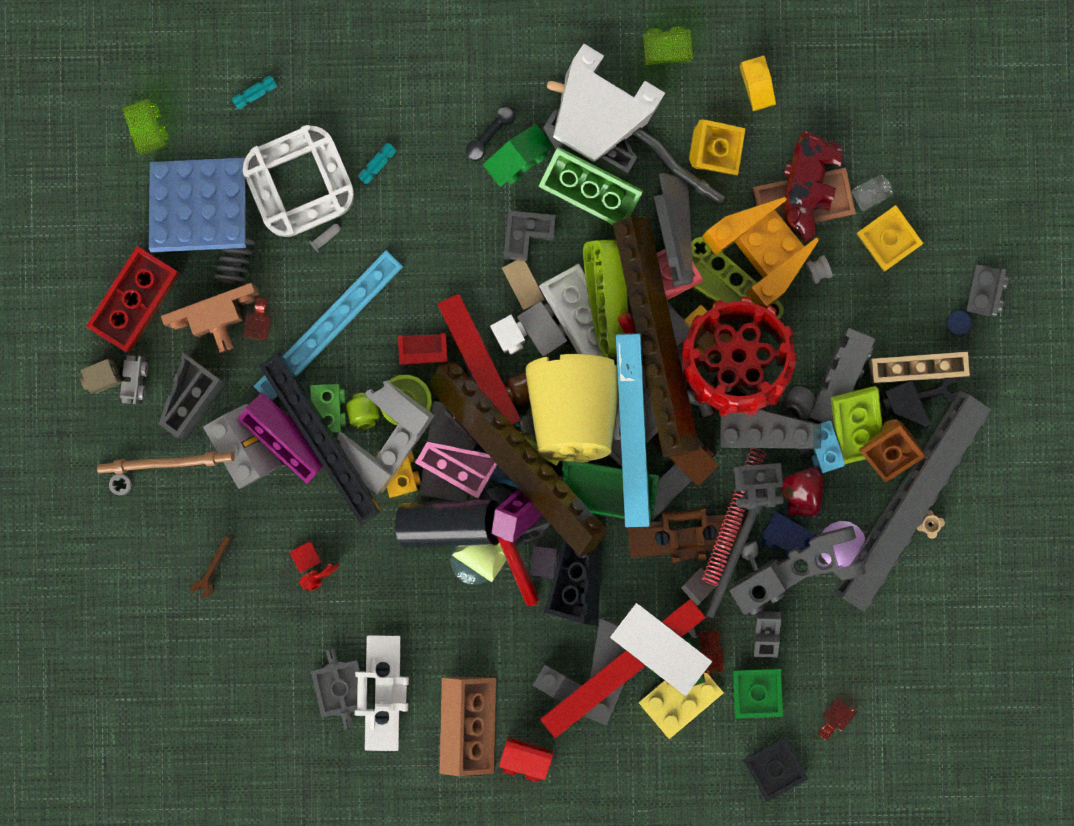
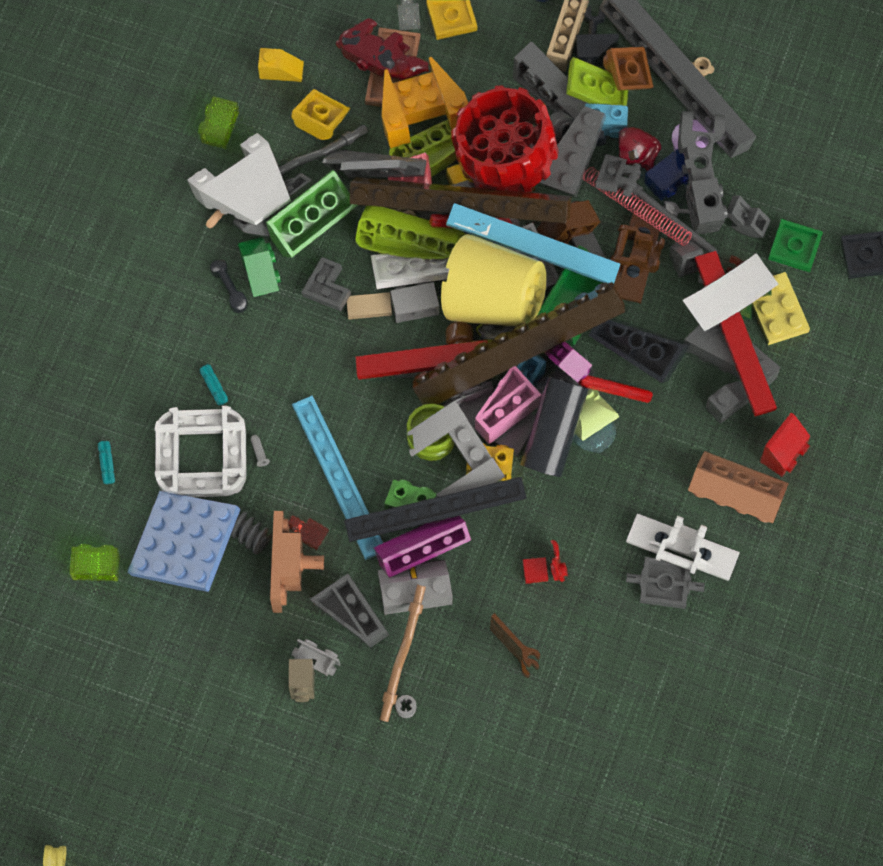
camera: 70 degrees left, 20 degrees down
(117, 300) = (247, 614): red brick -> none
(362, 412) = (425, 472): lime head -> none
(423, 349) = (392, 404): red panel -> none
(509, 334) = (409, 326): white brick -> none
(543, 561) = (616, 370): clear purple panel -> none
(819, 269) = (456, 71): light grey wheel -> none
(837, 717) = (839, 192): clear red plate -> none

